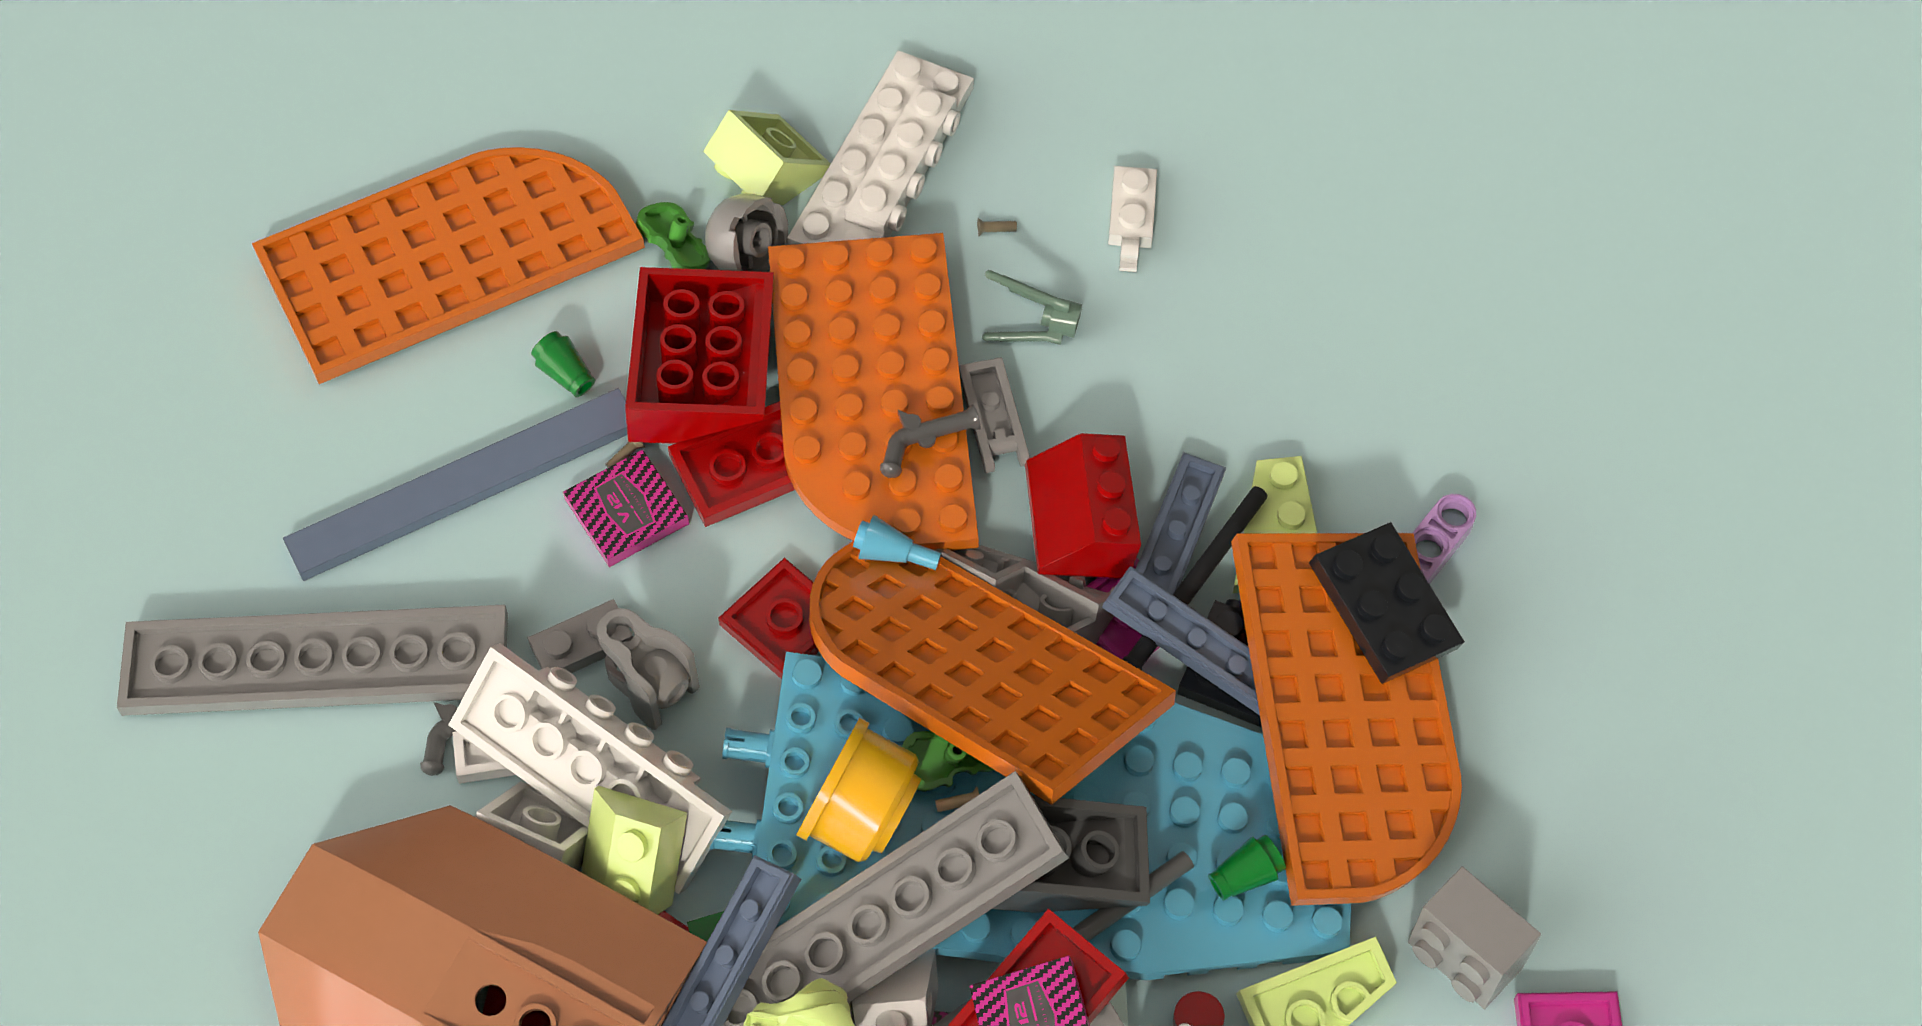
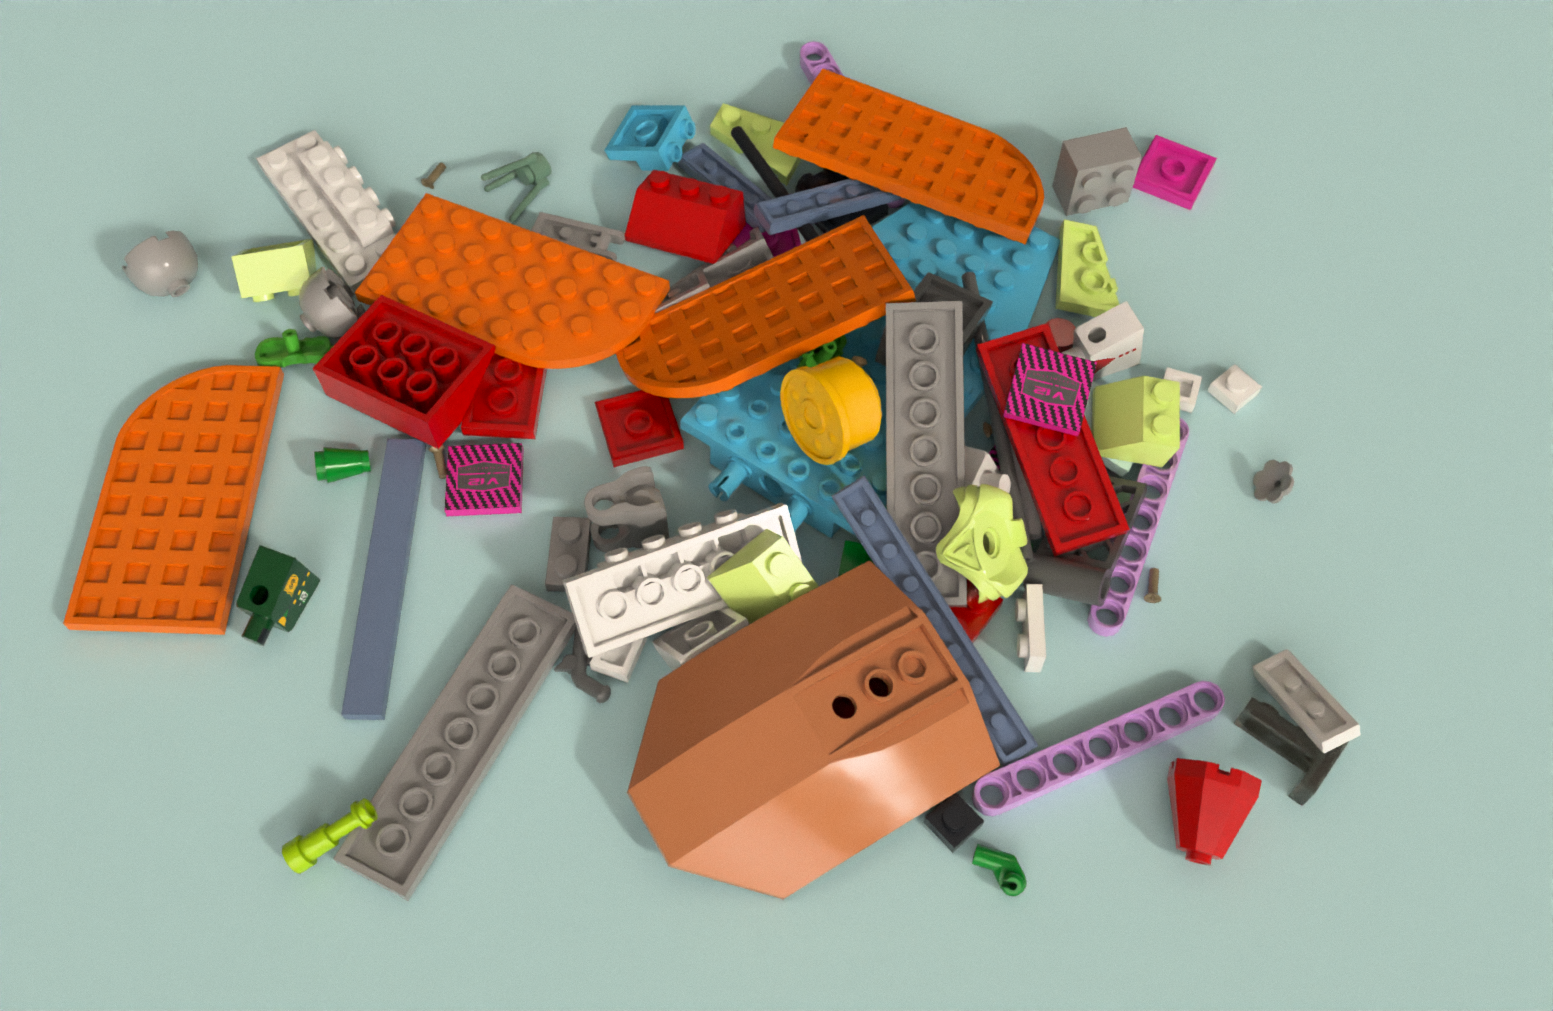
camera: 60 degrees left, 0 degrees up
(125, 594) = (303, 851): none -> lime piece
(374, 398) = (274, 593): none -> dark green torso
(696, 60) = (162, 265): none -> light grey cylinder
(885, 543) = (636, 329): medium azure cone -> none
(923, 434) = (575, 266): dark grey piece -> none
(1132, 213) = (486, 102): white plate -> none
(1191, 409) = (652, 136): none -> medium azure plate
(1247, 868) = (990, 250): green cone -> none
(1386, 602) = (863, 98): black plate -> none

